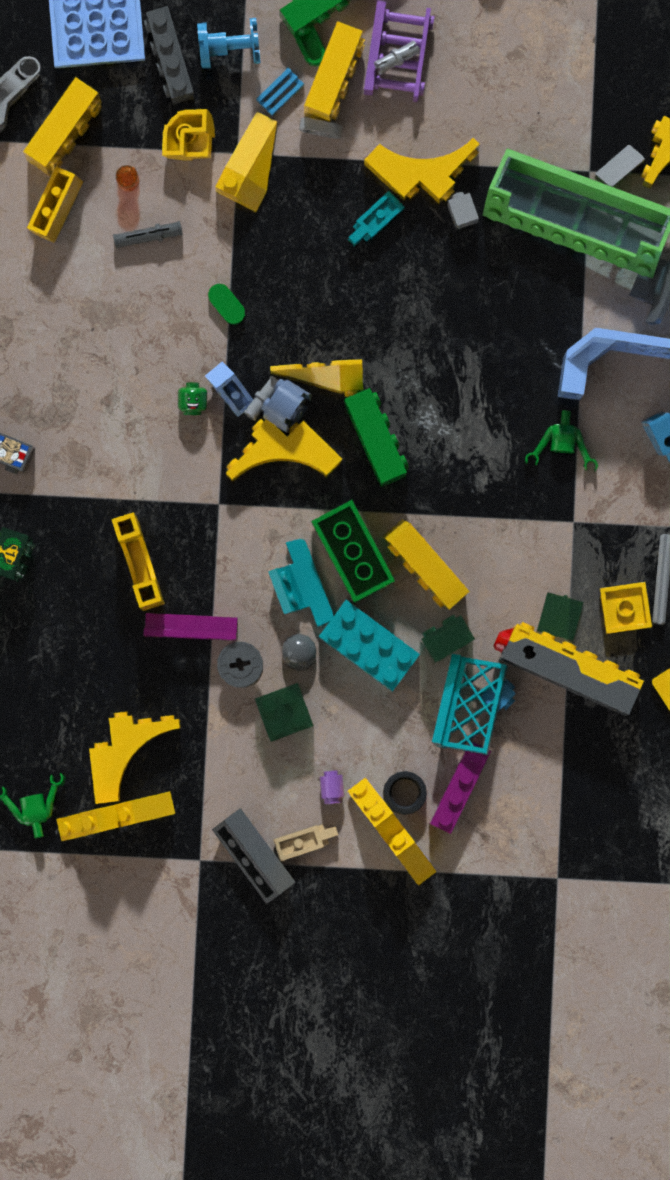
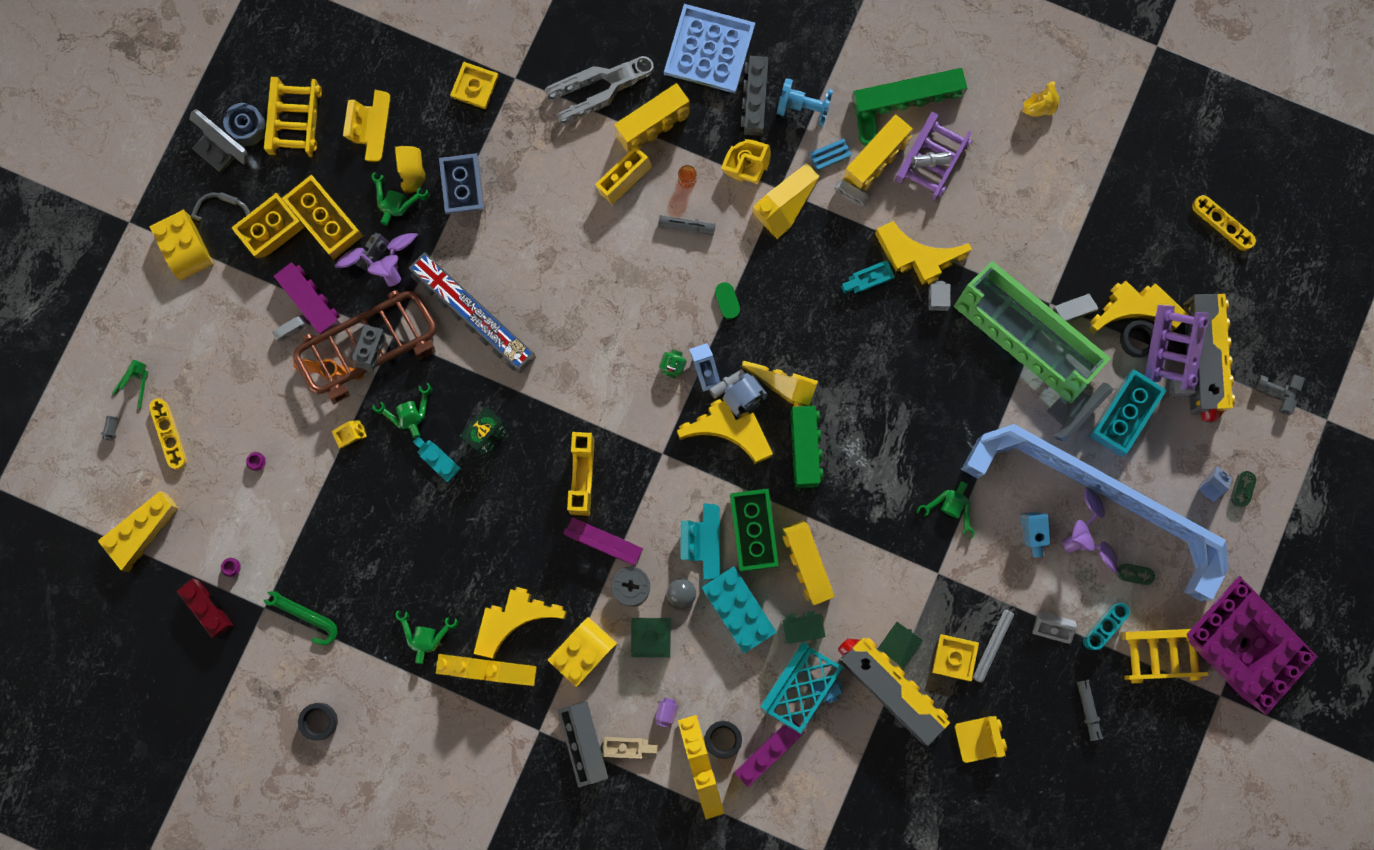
camera: 25 degrees right, 5 degrees down
(214, 756) = (582, 651): none -> yellow brick

